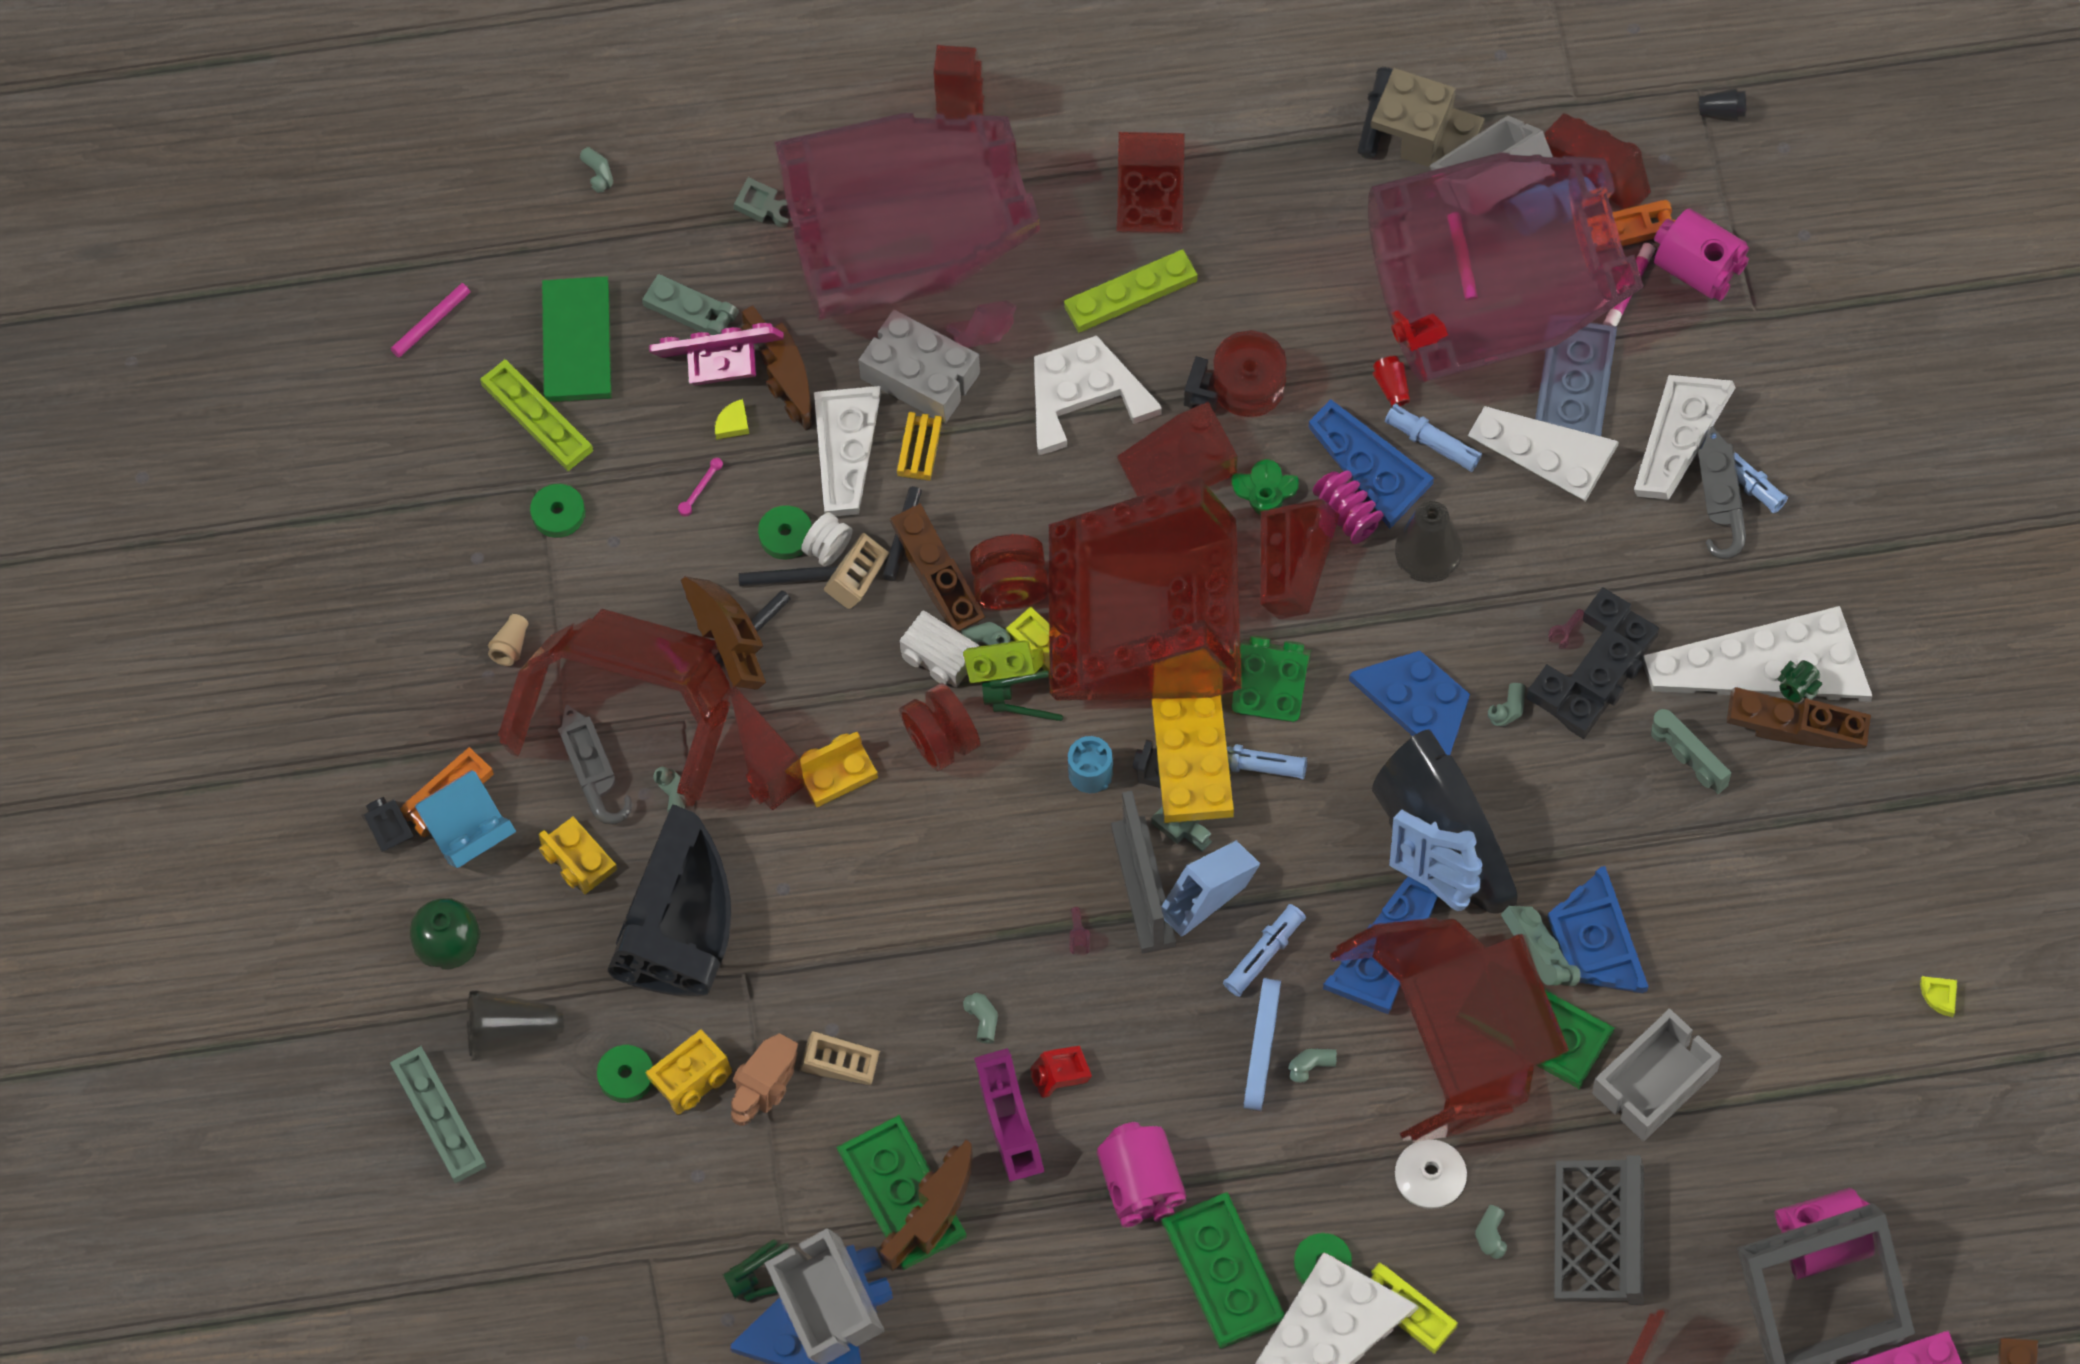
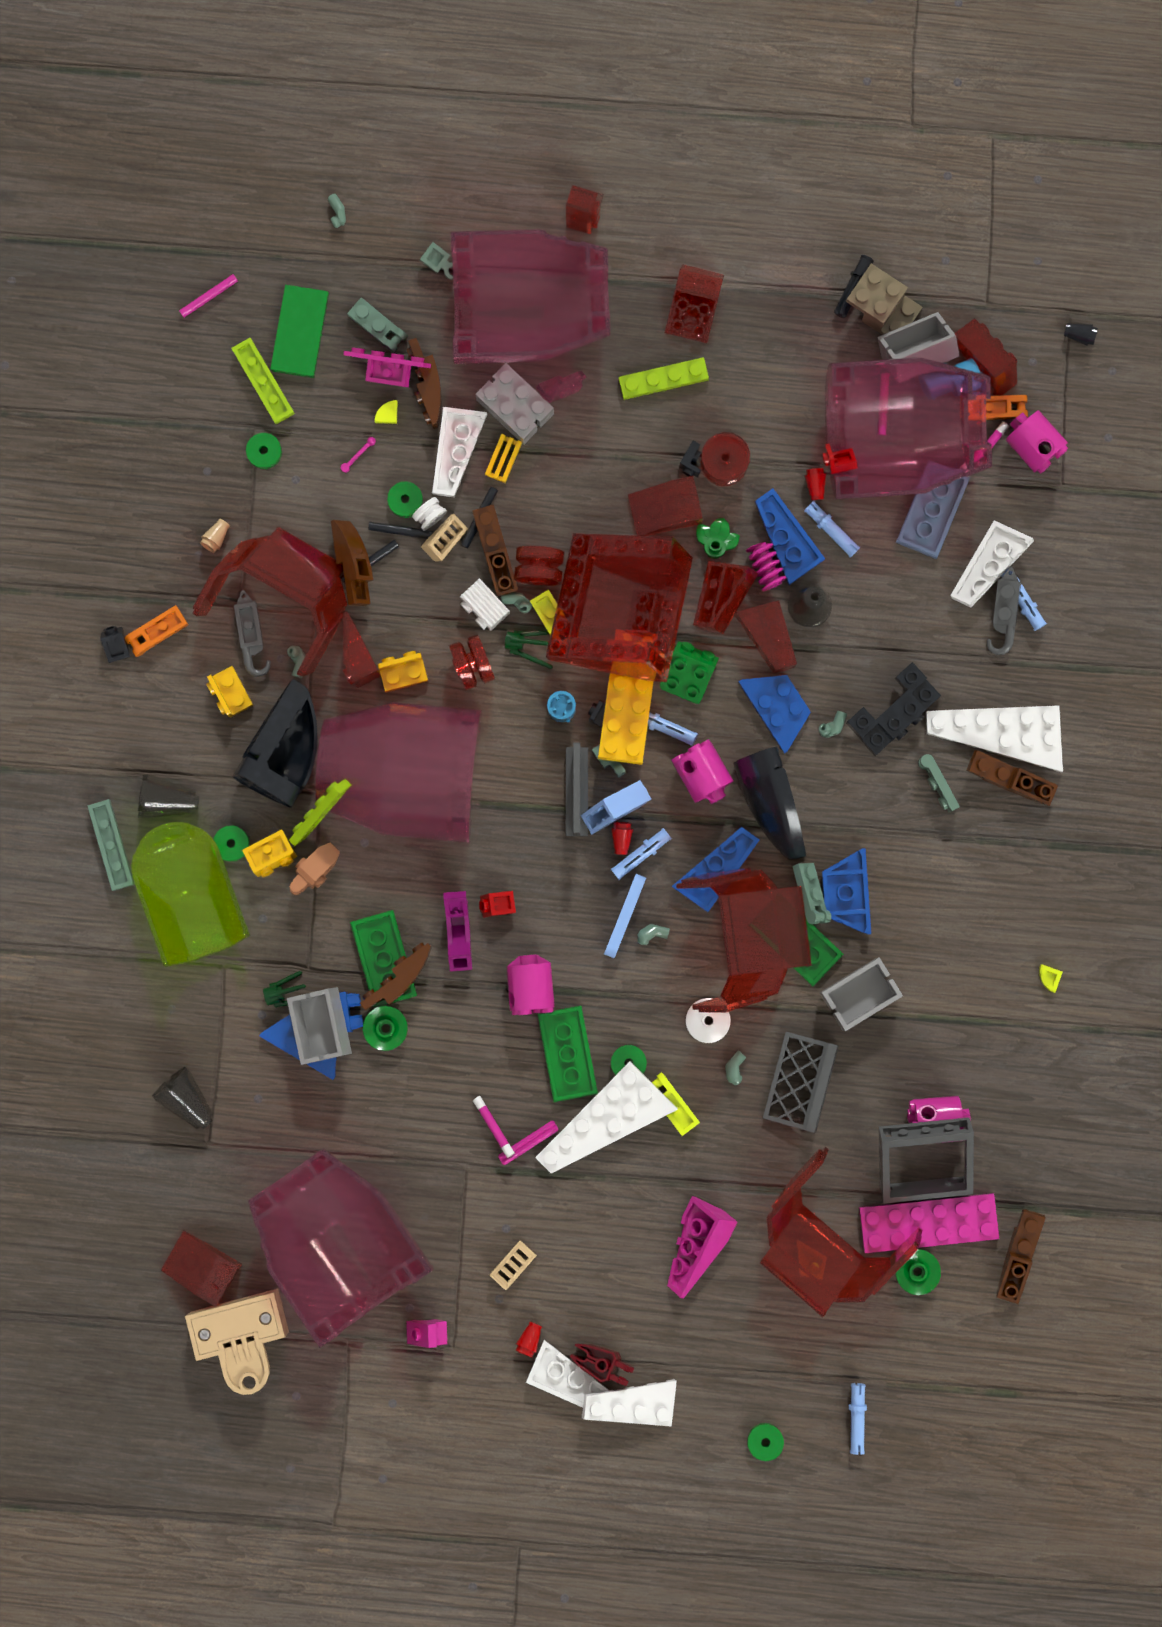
camera: 10 degrees right, 20 degrees up
(444, 933) = (137, 726): dark green cylinder -> none
(463, 819) = (163, 656): dark azure bracket -> none
(576, 1153) = (186, 893): none -> clear neon green windscreen
(750, 992) = (315, 816): none -> lime plate
(837, 1071) = (347, 855): tan slope -> none
(868, 907) = (404, 768): none -> clear pink windscreen
(922, 1275) = (373, 1028): none -> green dish
(986, 1013) = (460, 855): sand green arm -> none
(1002, 661) = (521, 627): lime bracket -> none
(1078, 935) = (529, 817): clear pink hand -> none
(1079, 378) = (616, 433): white wing -> none
(1228, 931) = (621, 836): none -> red cone
(1329, 808) = (703, 772): none -> dark pink cylinder
(1379, 598) = (769, 633): none -> clear red wedge
(1425, 855) = (763, 829): light blue plate -> none
(1551, 451) = (907, 559): white wing -> none
(1566, 628) = (882, 680): clear pink hand -> none
(1799, 681) = (1019, 755): dark green gear -> none

